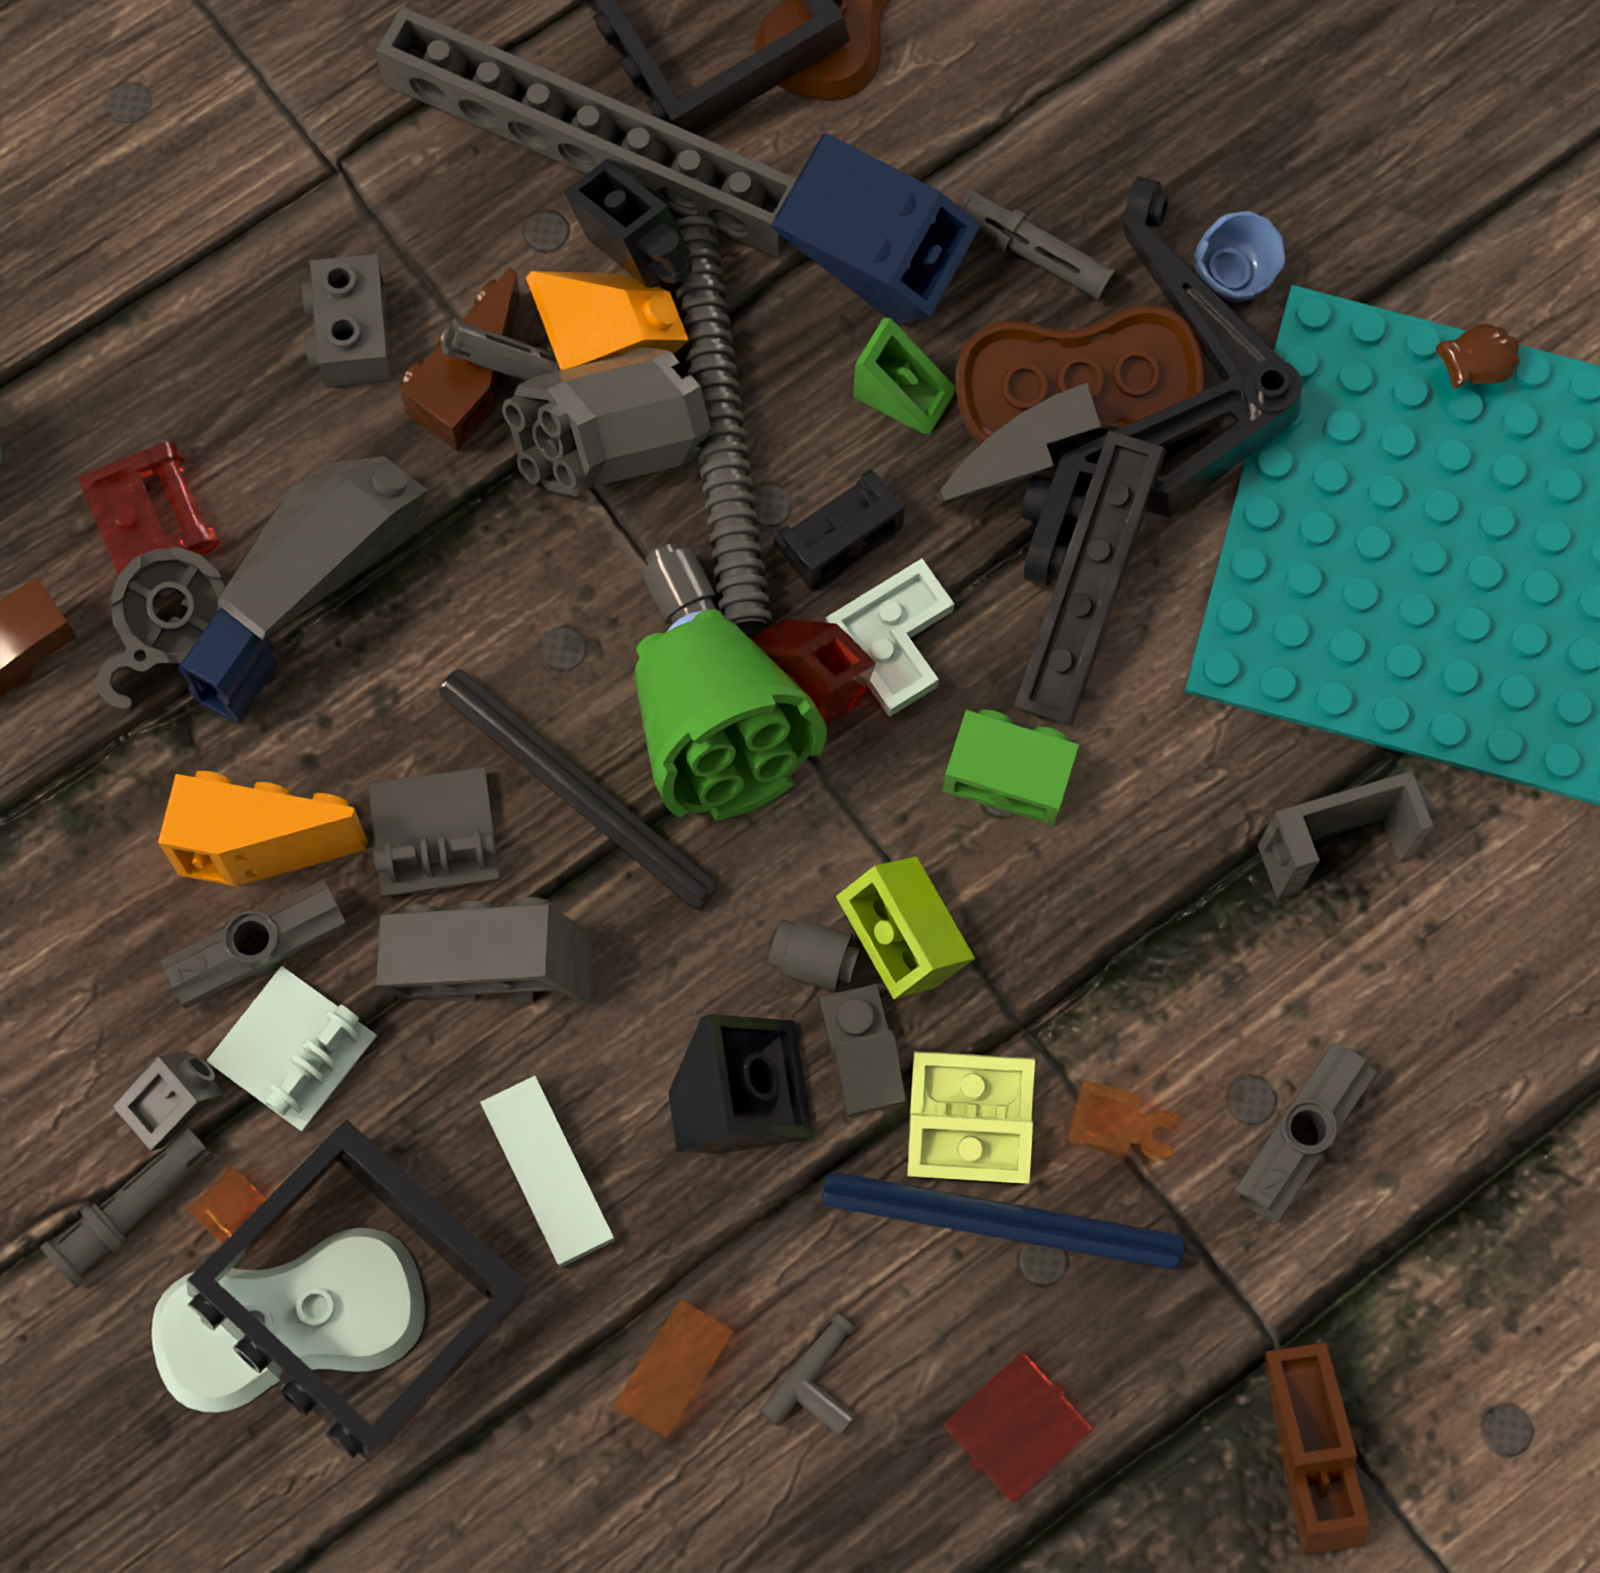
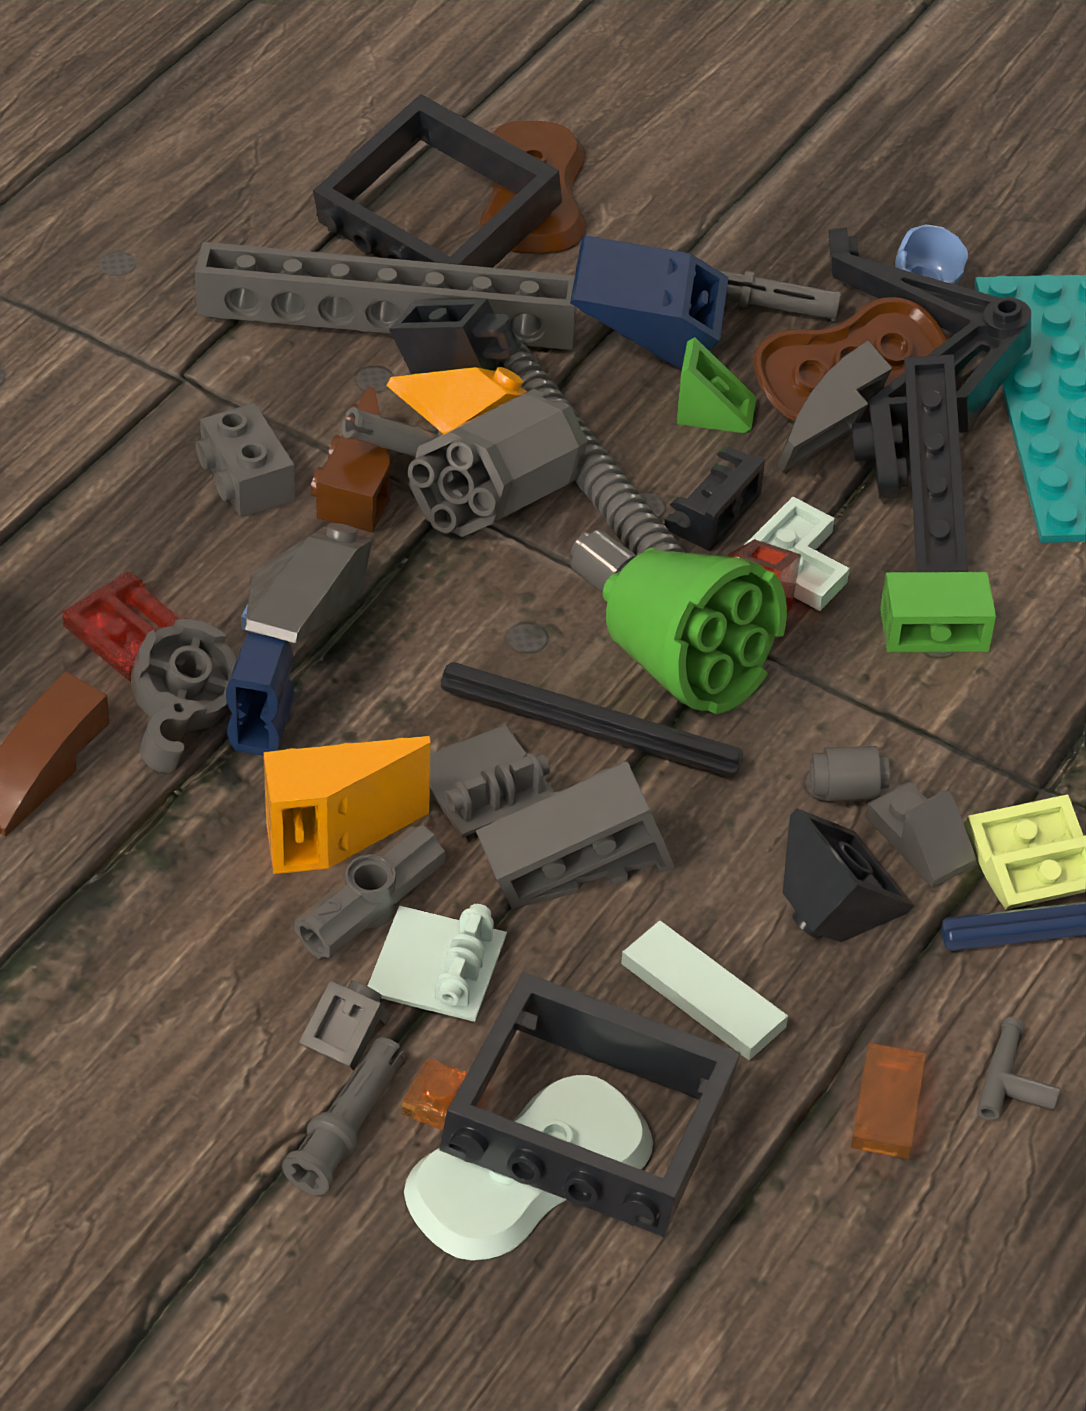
camera: 20 degrees left, 25 degrees down
(905, 927) = (914, 729): lime brick -> none

